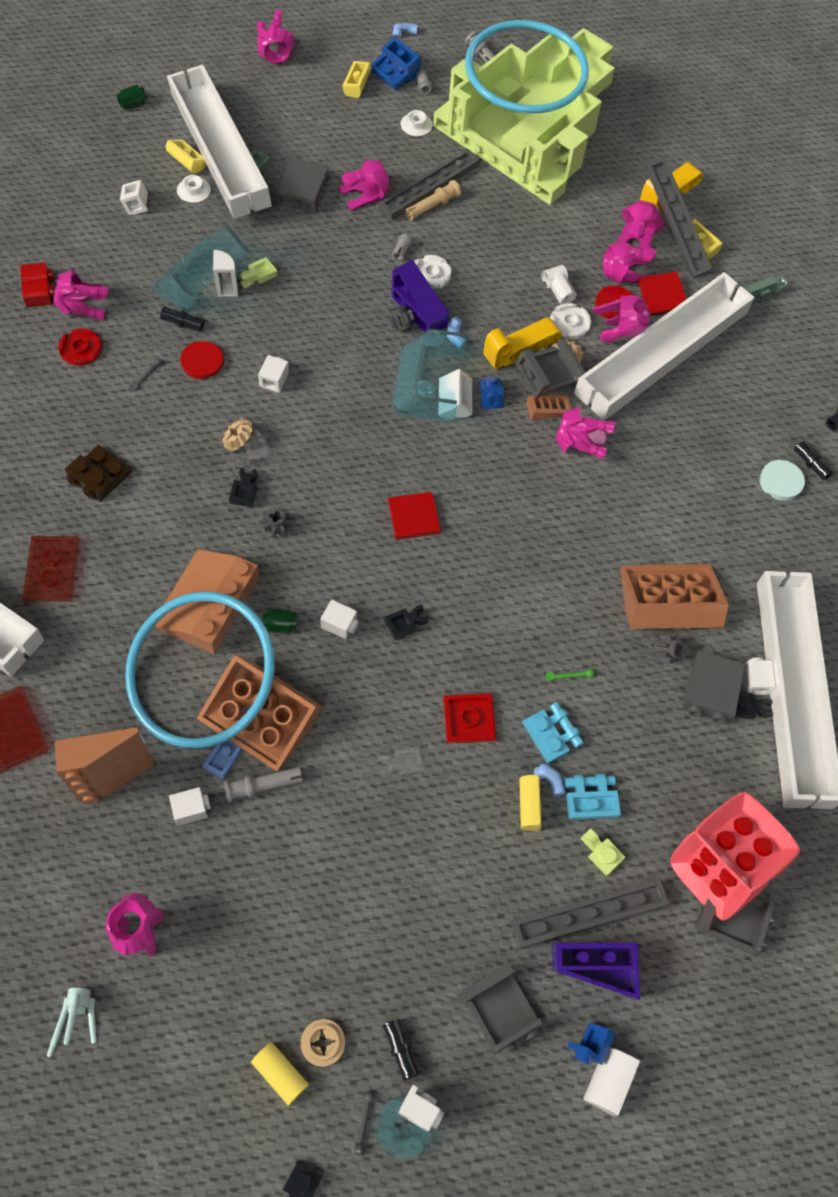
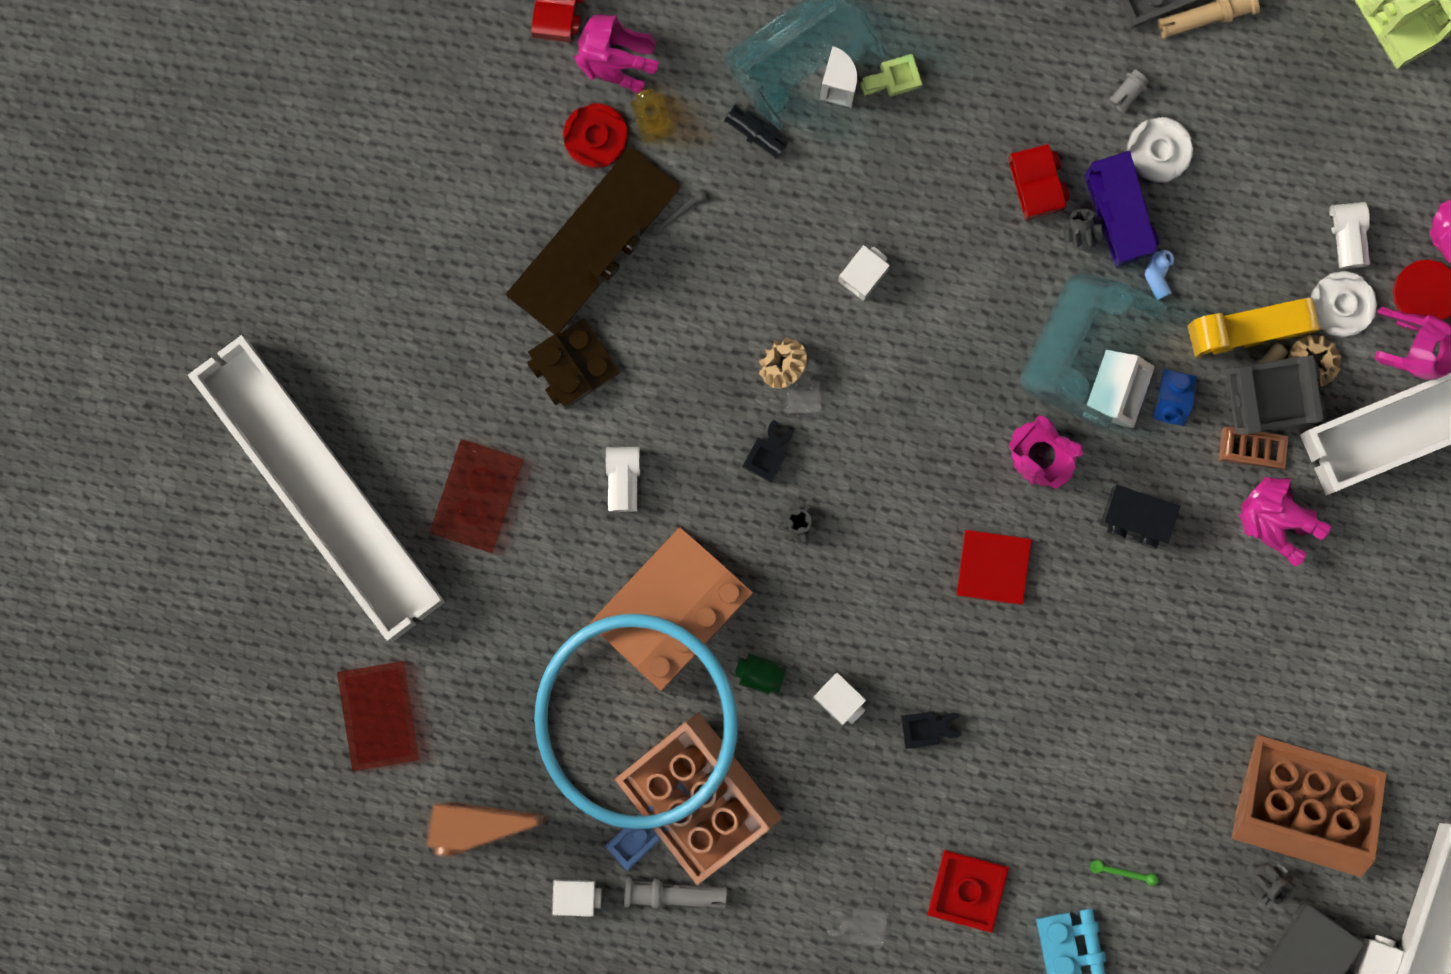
camera: 25 degrees right, 20 degrees up
(92, 401) = (593, 241): none -> dark brown bracket
(112, 322) = (651, 127): none -> clear yellow brick
(149, 526) = (622, 469): none -> white piece
(201, 360) = (766, 212): red tile -> none
(364, 302) = (1038, 182): none -> red brick
(414, 435) = (1065, 453): none -> dark pink piece
(495, 457) = (1139, 516): none -> black brick

